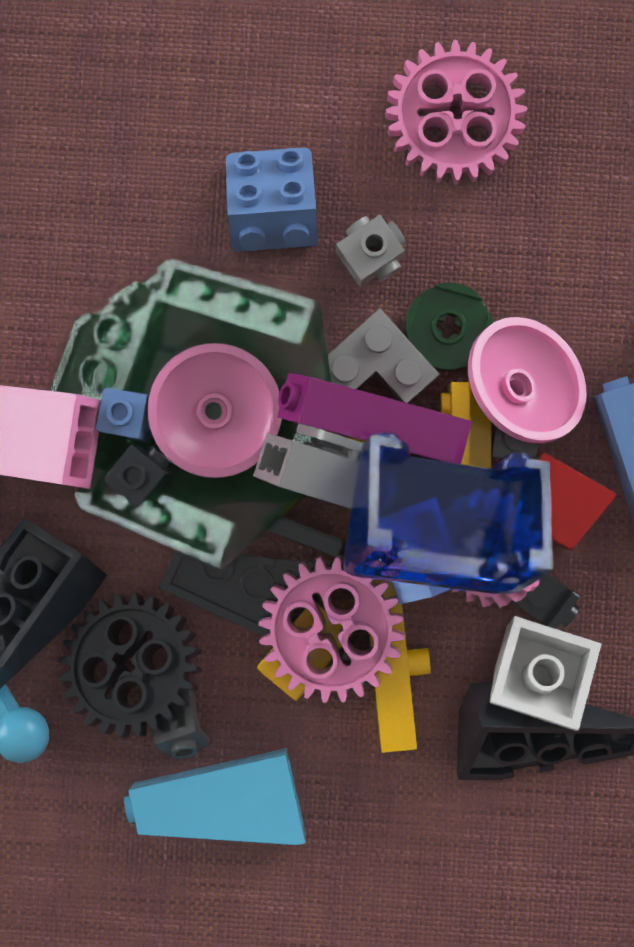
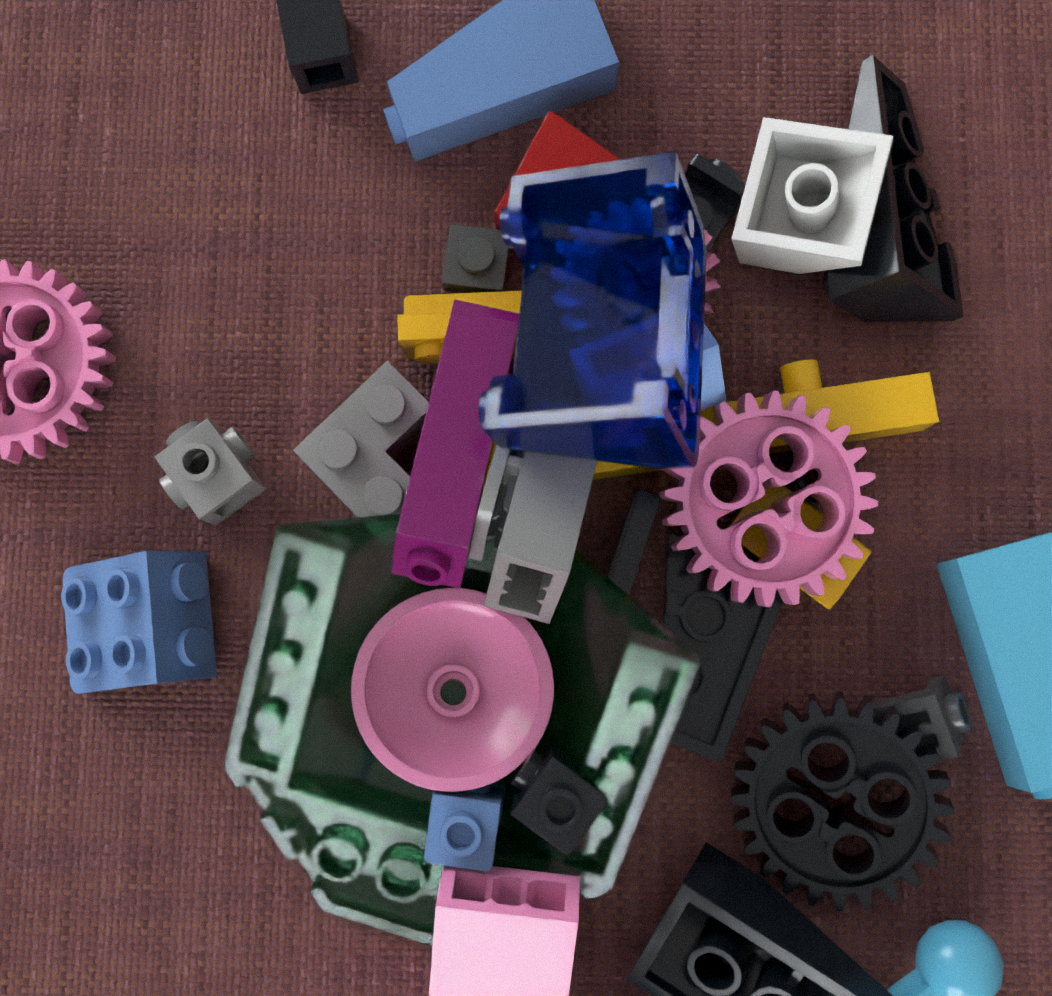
camera: 90 degrees left, 5 degrees down
(435, 306) = (302, 330): dark green plate -> none
(527, 380) = (393, 241): bright pink dish -> none

